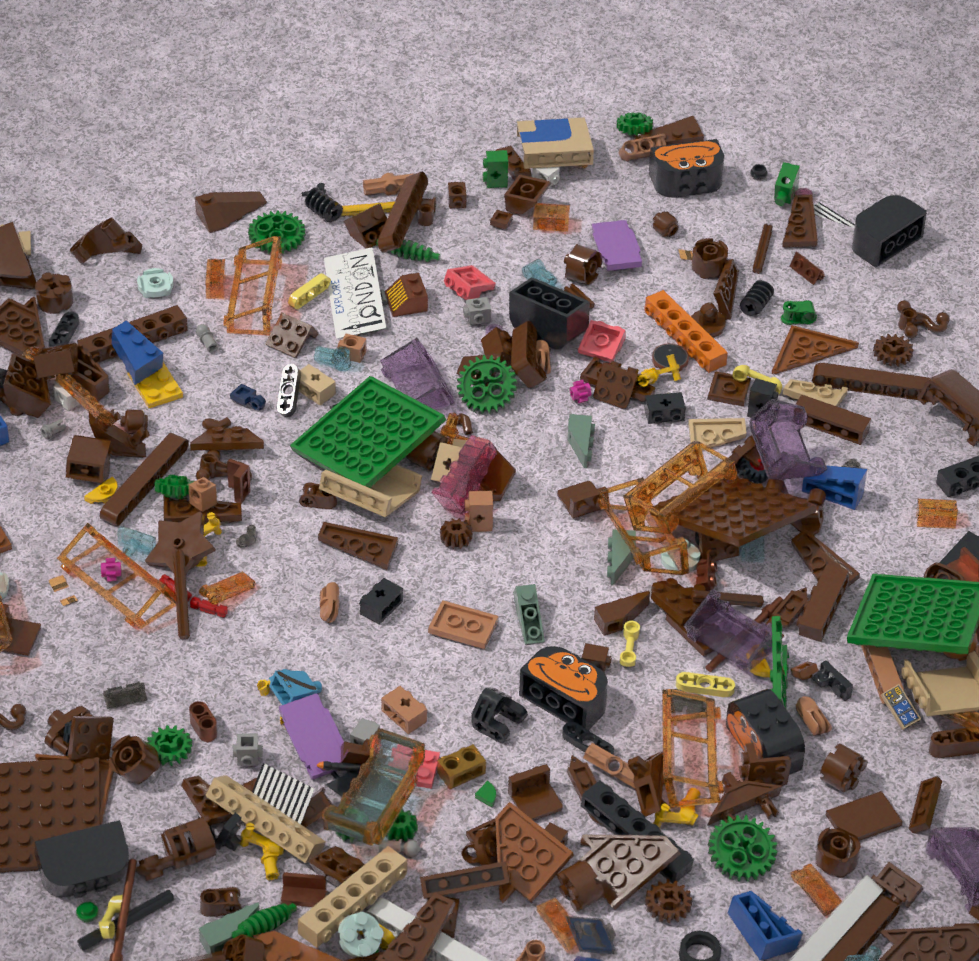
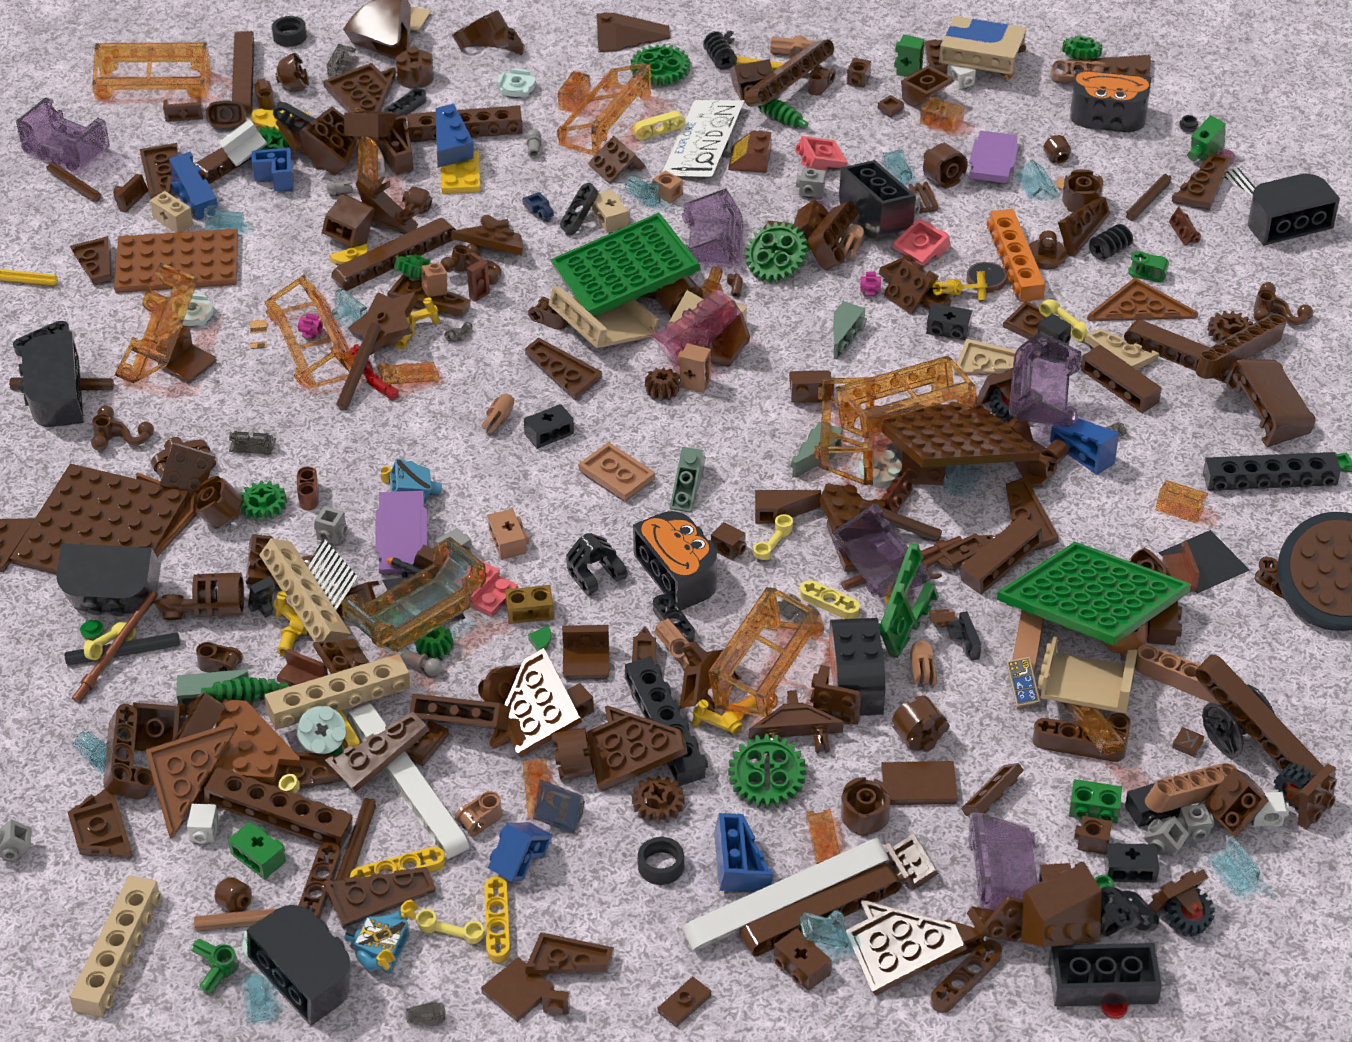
camera: 25 degrees right, 0 degrees up
(661, 258) = (1034, 179): none -> clear light blue panel
(915, 364) = (1240, 346): none -> reddish brown beam

